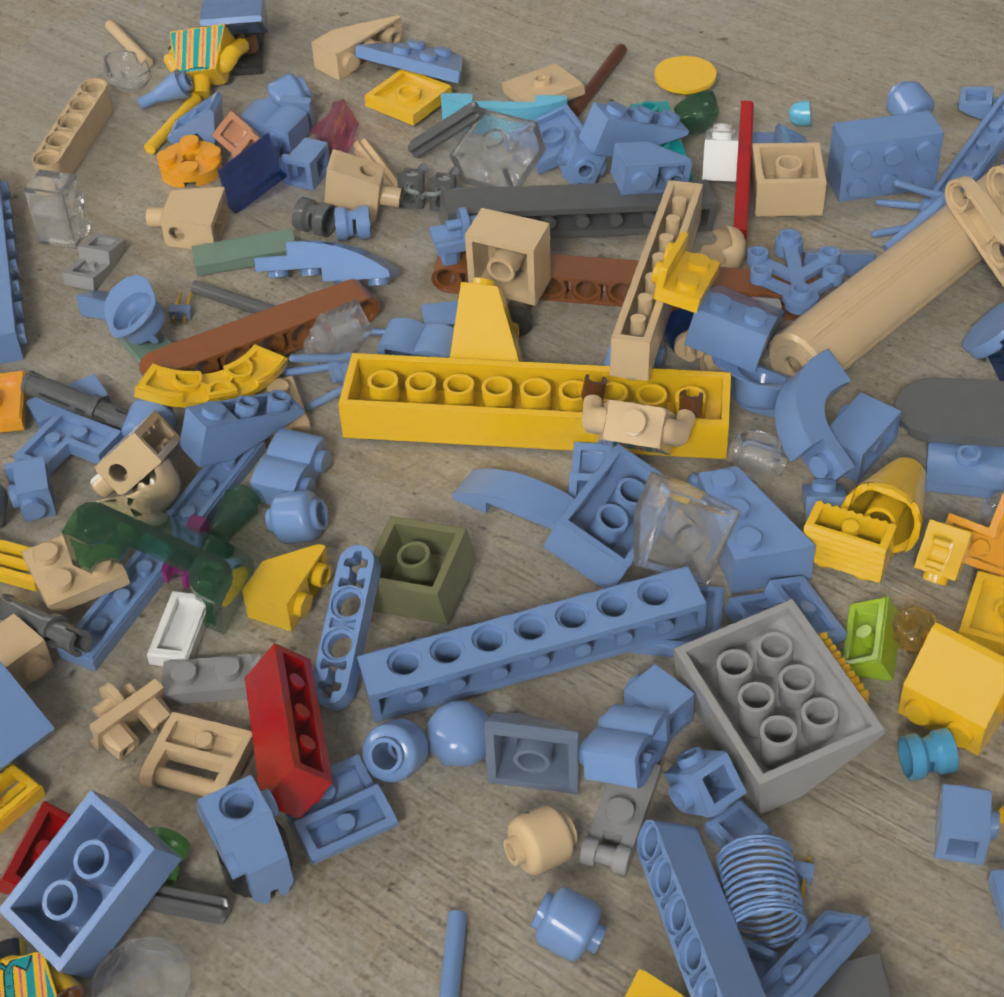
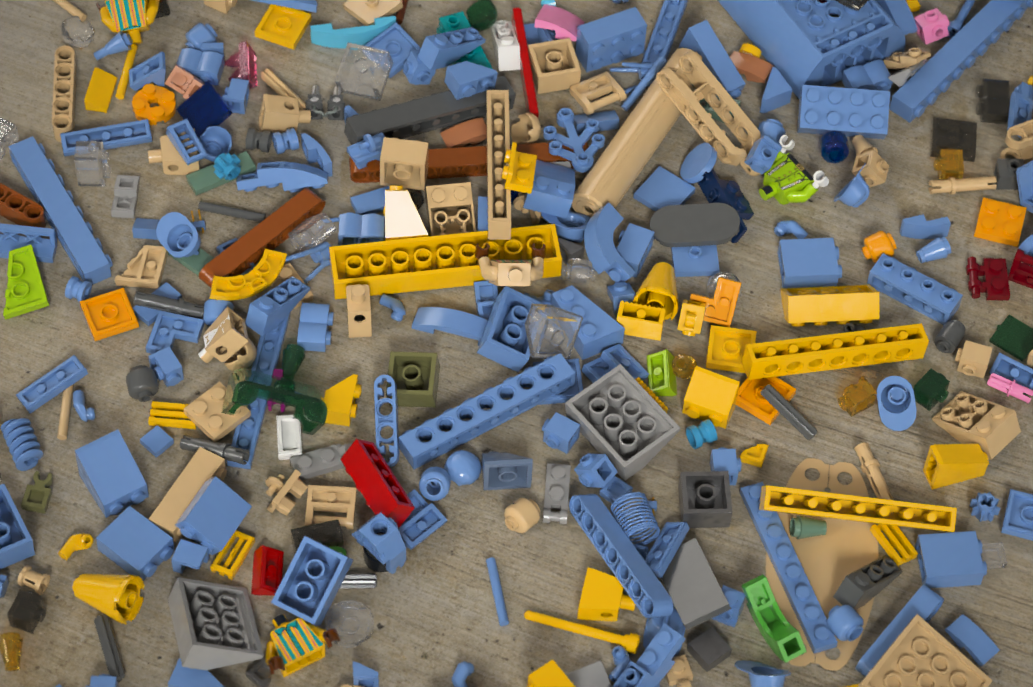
camera: 20 degrees left, 10 degrees up
(72, 354) = (145, 269): none -> tan wing
(123, 137) = (100, 91): none -> yellow slope
(124, 187) = (113, 136): none -> medium blue brick
(156, 802) = (326, 533): none -> clear smoke brick
(201, 179) = (180, 127): none -> medium blue slope
(248, 212) = (216, 141): none -> medium blue hair
(249, 236) = (227, 166): none -> dark azure gear
(297, 517) = (330, 357): medium blue head -> none
(370, 435) = (358, 304): none -> tan torso
(391, 243) = (315, 153): none -> medium blue slope
(436, 459) = (394, 304): none -> medium blue arm
(445, 129) = (324, 59): dark grey axle -> none
(568, 924) = (547, 553): medium blue head -> none
(569, 329) = (450, 209): none -> tan slope
(620, 246) = (470, 131): none -> nougat slope
(625, 745) = (553, 459): medium blue brick -> none
(745, 416) = (570, 250): none -> flat silver slope
(810, 127) = (559, 20): none -> bright pink slope
(849, 222) = (595, 88): none -> tan plate
(914, 879) = (705, 499): none -> flat silver brick
(929, 357) = (663, 190): none -> medium blue tile

